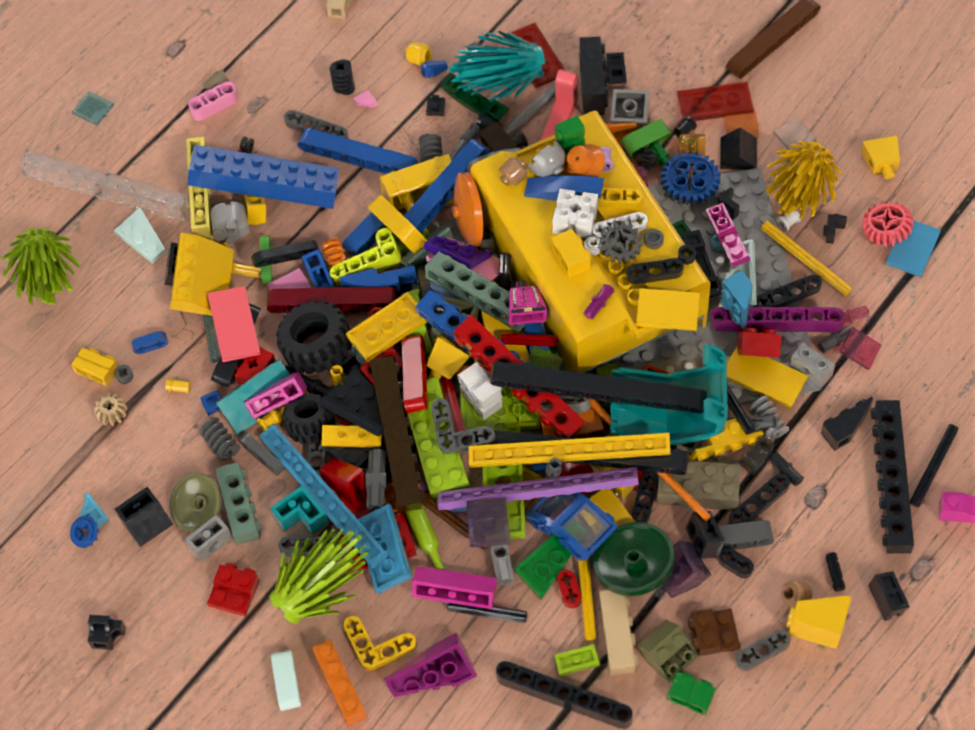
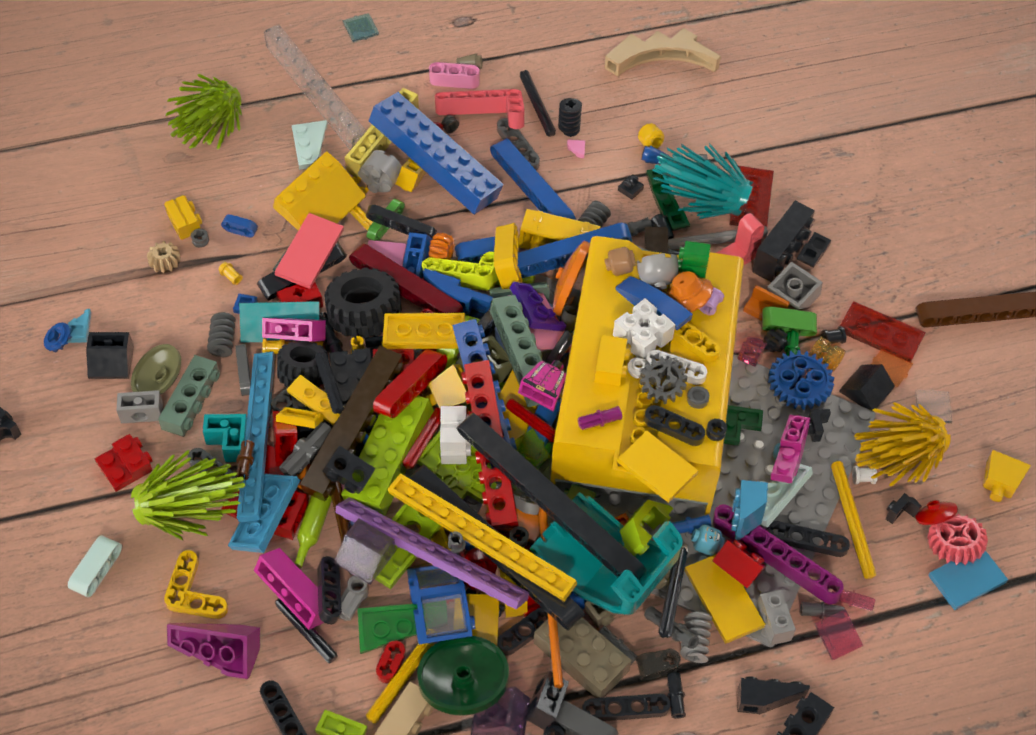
camera: 30 degrees right, 5 degrees down
(261, 107) = (483, 102): none -> coral beam
(301, 82) = (537, 103): none -> black axle
(337, 518) = (245, 459): none -> reddish brown pin
(339, 682) = (132, 599): orange brick -> none
(351, 458) = (299, 417): none -> yellow tile
(427, 467) = (351, 465): none -> black brick
(456, 438) = (397, 457): dark grey beam -> none
(498, 581) = (332, 590): none -> black beam
(590, 427) = (523, 532): none -> pearl dark grey bush
(667, 361) = (634, 535): none -> lime slope
(696, 240) = (748, 456): black slope -> none
(699, 341) = (689, 524): none -> blue pin
(724, 340) = (707, 540): none -> medium azure head
(731, 439) = (639, 626): yellow bracket -> none
(860, 214) = (936, 512): none -> red dish

